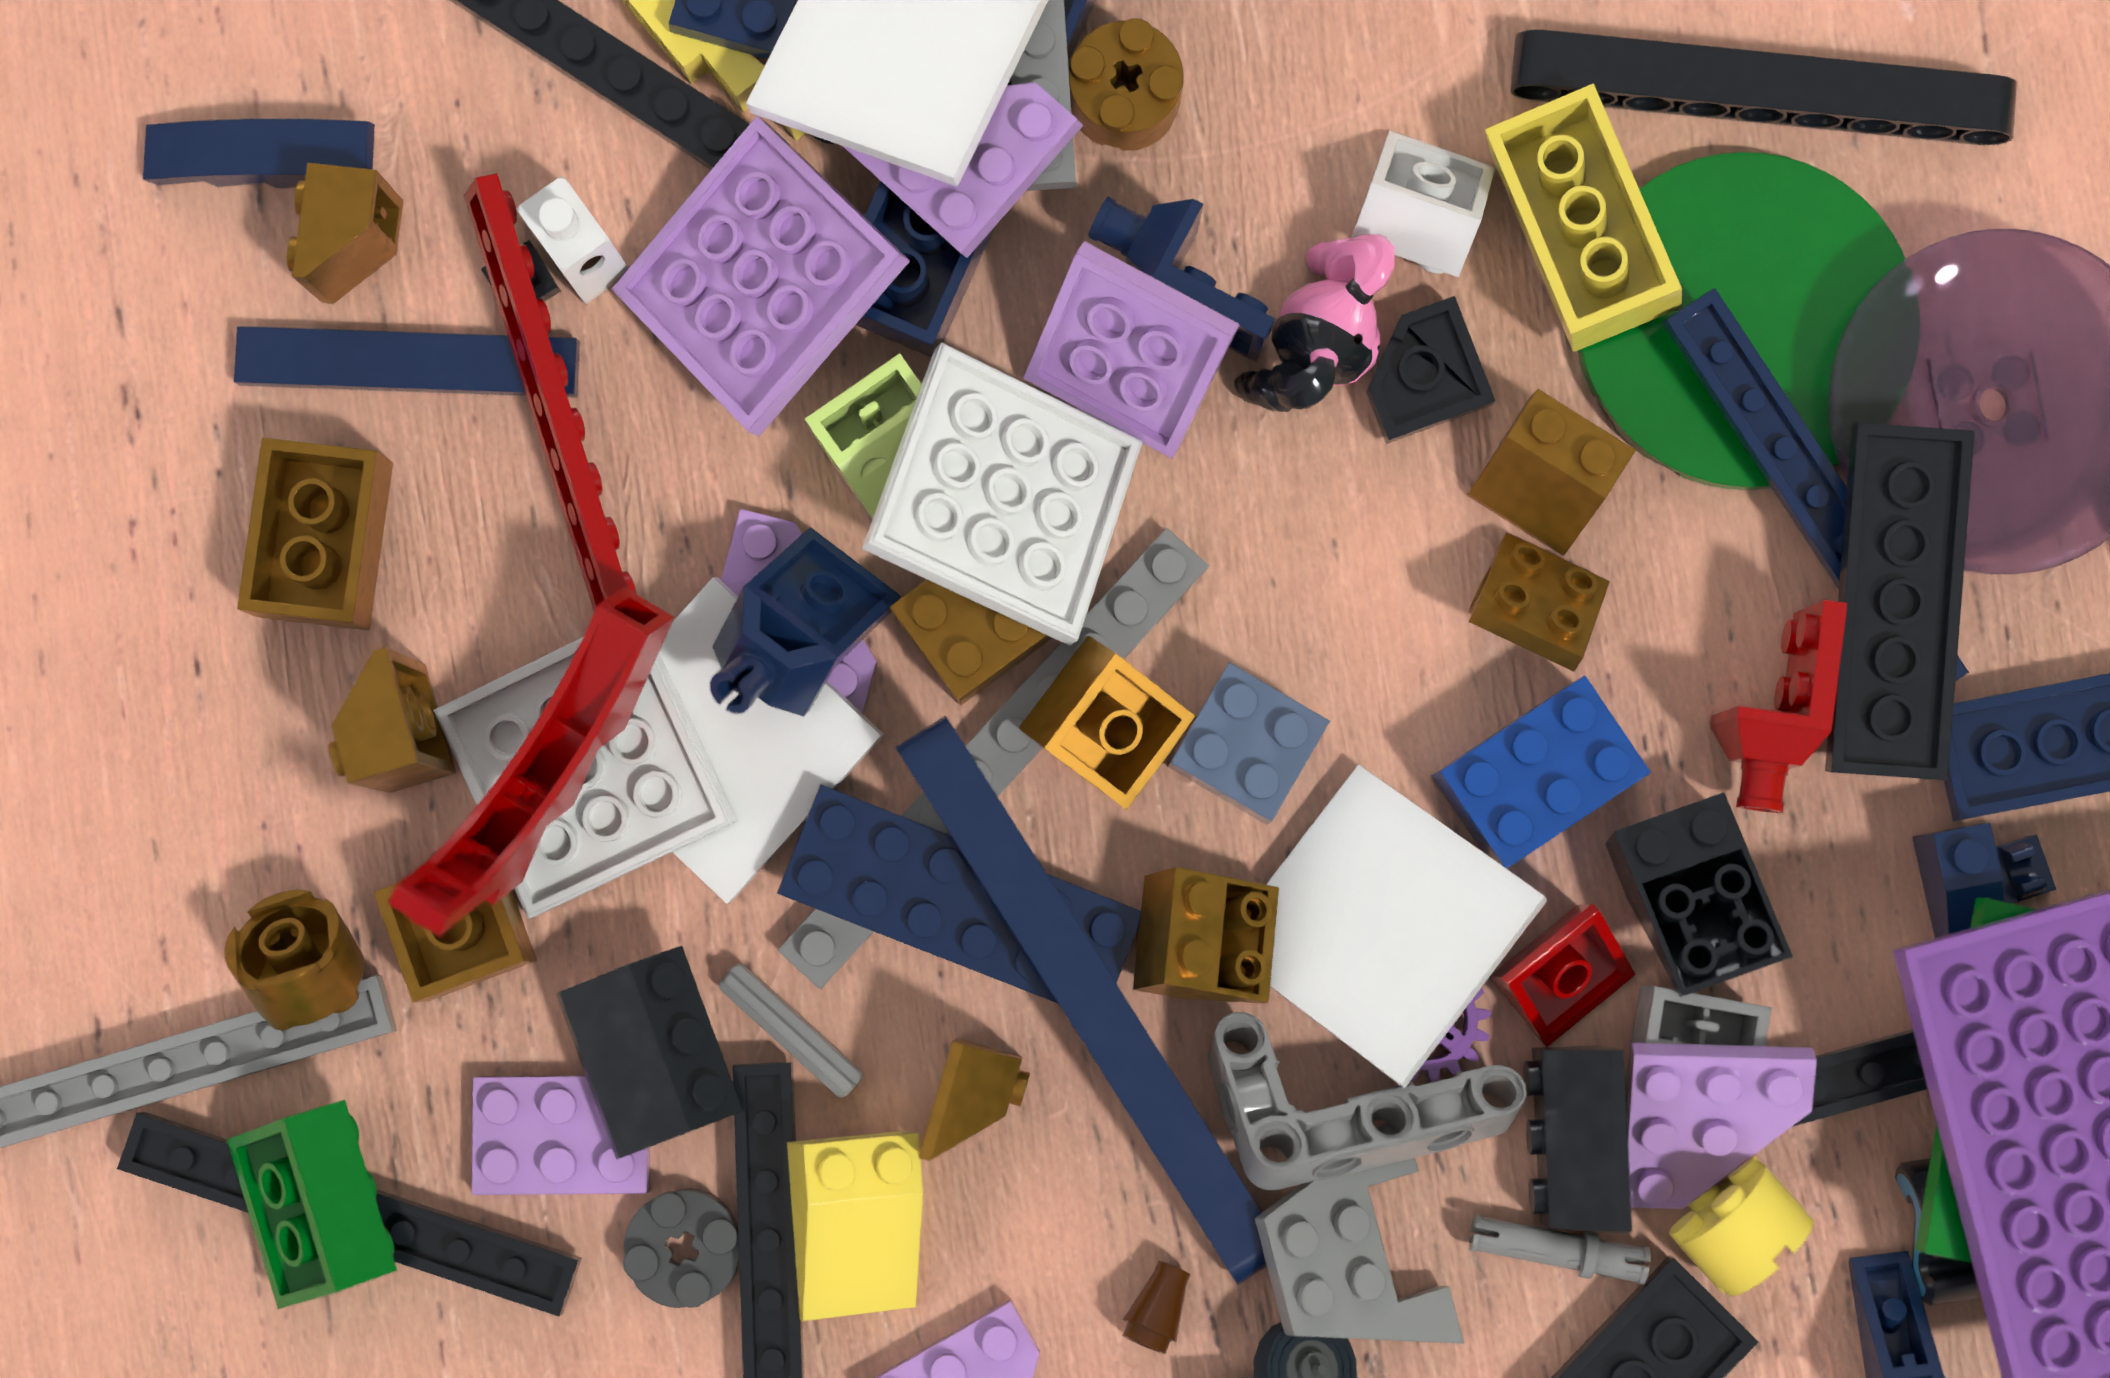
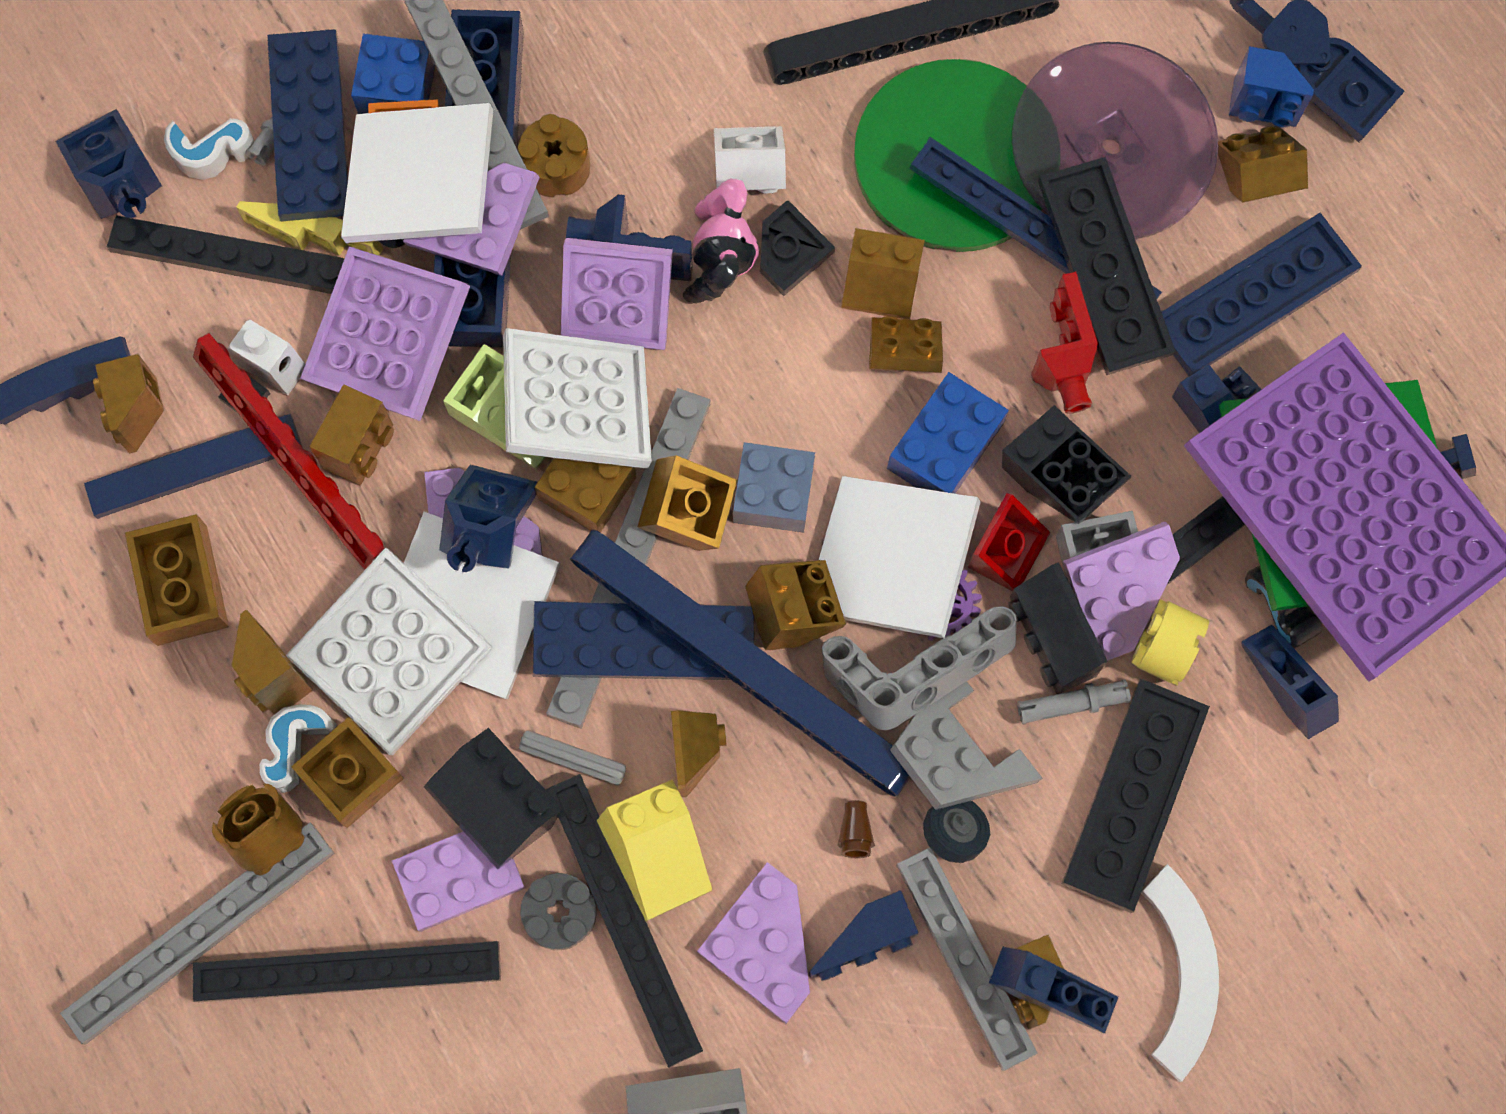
camera: 25 degrees left, 10 degrees down
(312, 1204) = (322, 969): green slope -> none
(383, 843) = (284, 740): none -> white animal
(547, 772) = (368, 659): red arch -> none
(652, 416) = (352, 435): none -> pearl gold brick
(1584, 218) = (842, 129): light yellow brick -> none

